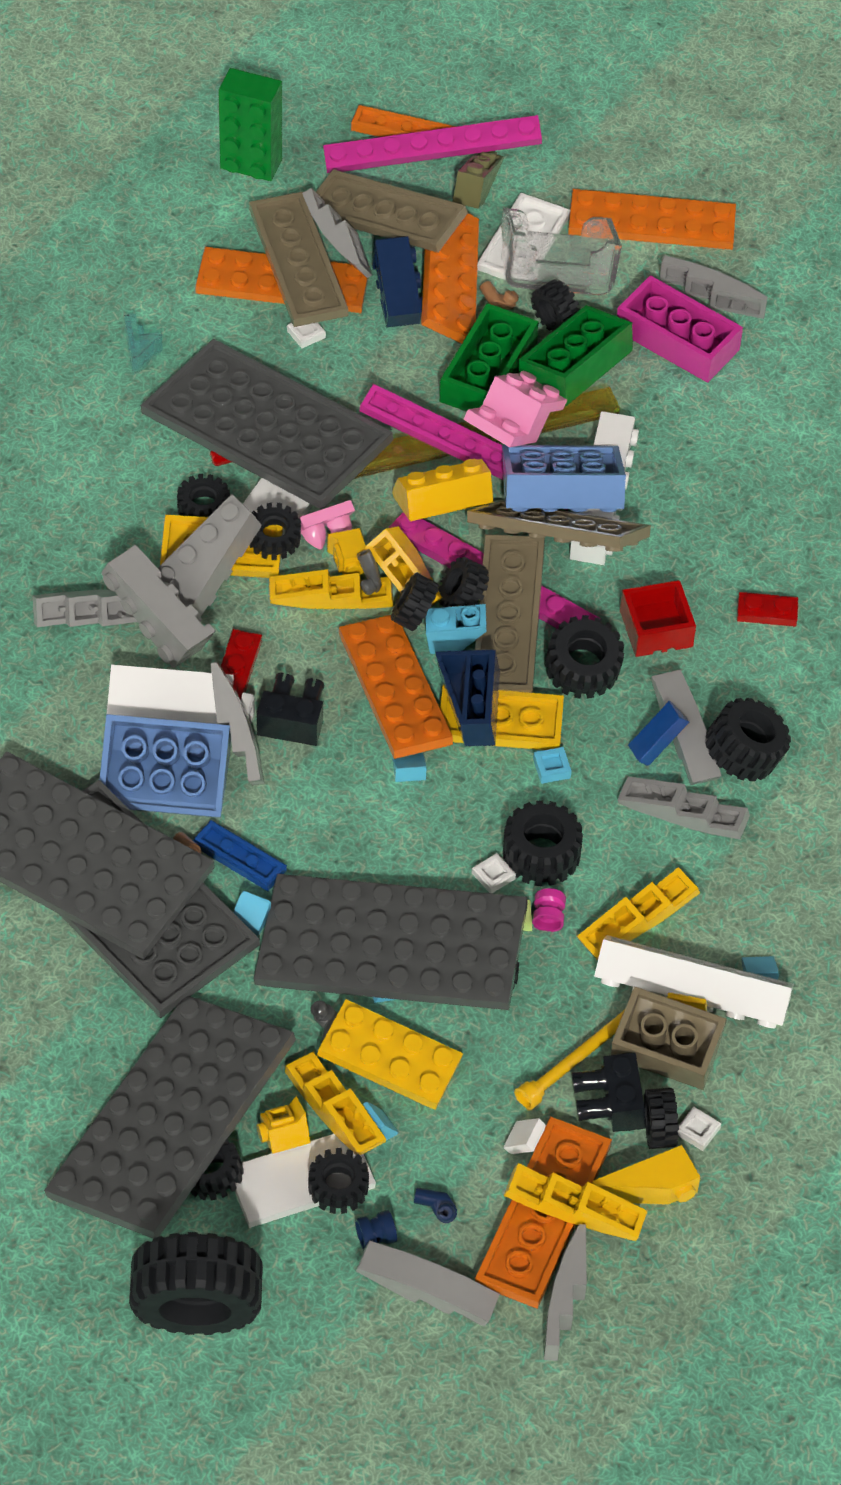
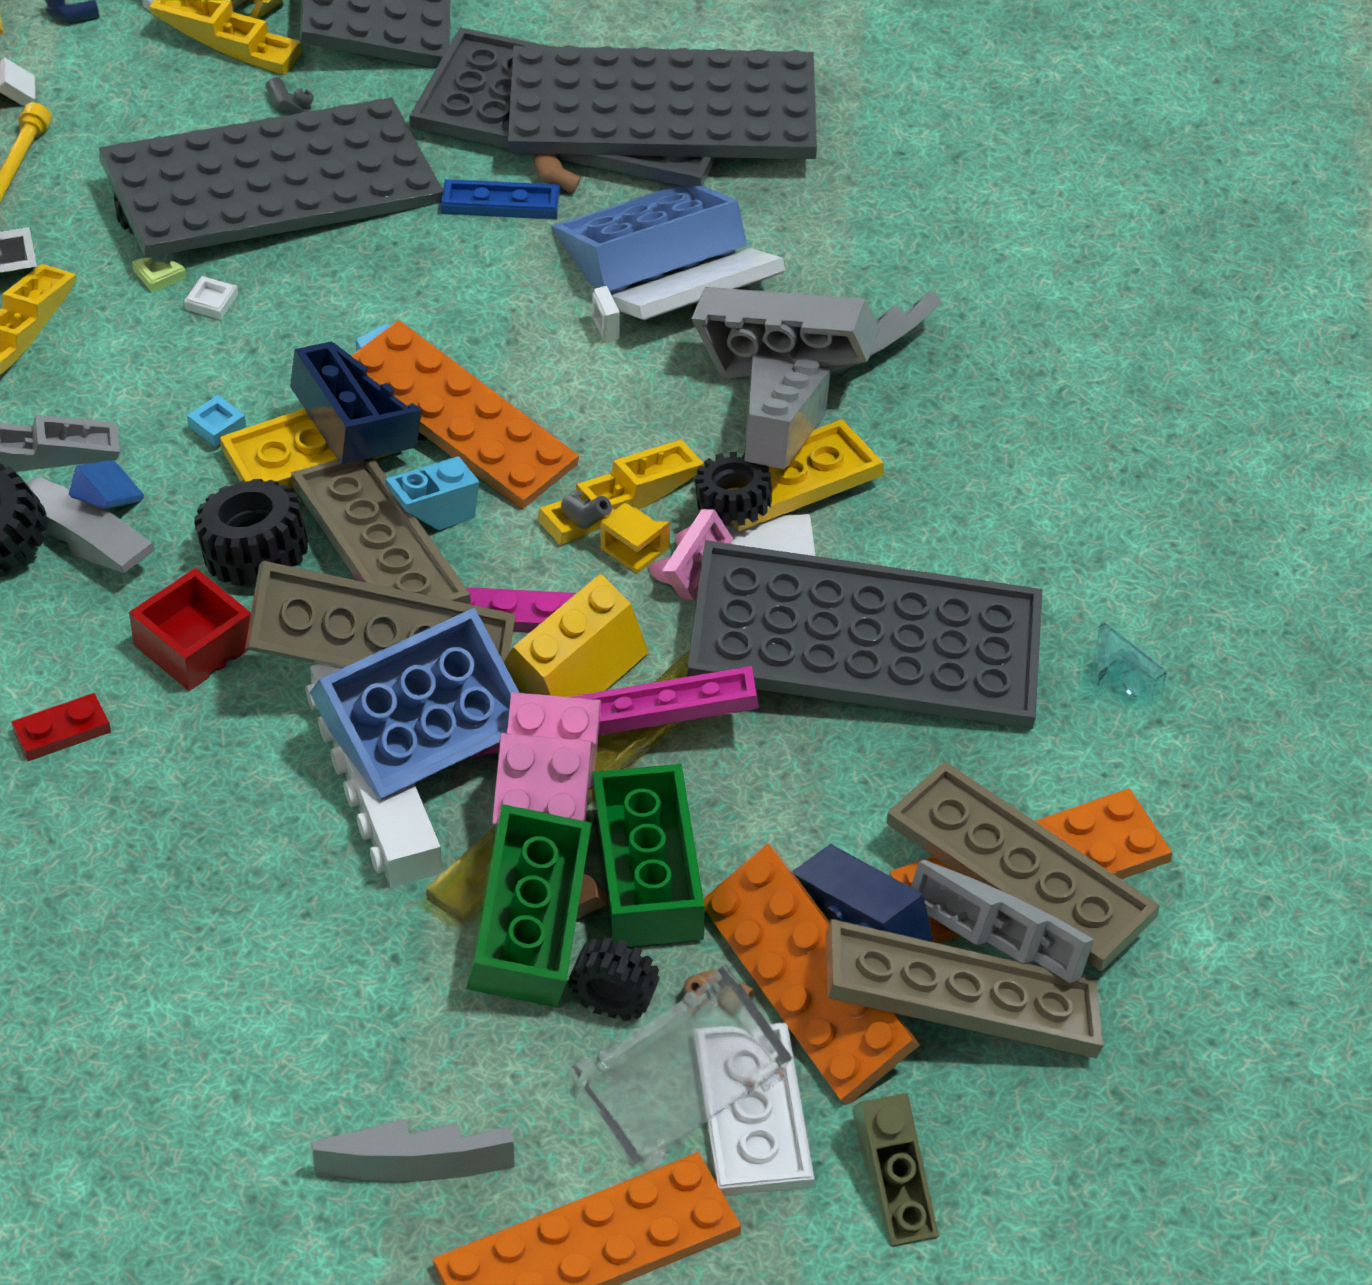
camera: 150 degrees right, 5 degrees down
(201, 488) = (861, 536): black tyre -> none
(231, 712) = (593, 266): light grey slope -> none
(241, 658) = (660, 367): red plate -> none
(250, 124) = (1251, 978): green brick -> none
(252, 911) = (443, 153): medium azure slope -> none
(291, 716) = (552, 328): black brick -> none
(381, 1120) = (173, 38): medium azure slope -> none
(386, 123) = (1066, 1198): orange plate -> none
(390, 1054) = (201, 92): yellow plate -> none
(398, 557) = (557, 544): yellow slope -> none
(414, 601) = (497, 479): black tyre -> none
(433, 144) = (994, 1173): dark pink plate -> none
(463, 583) = (457, 539): black tyre -> none
(542, 863) = (169, 325): black tyre -> none
(549, 909) = (120, 276): dark pink wheel -> none
(681, 328) = (416, 1040): dark pink brick -> none

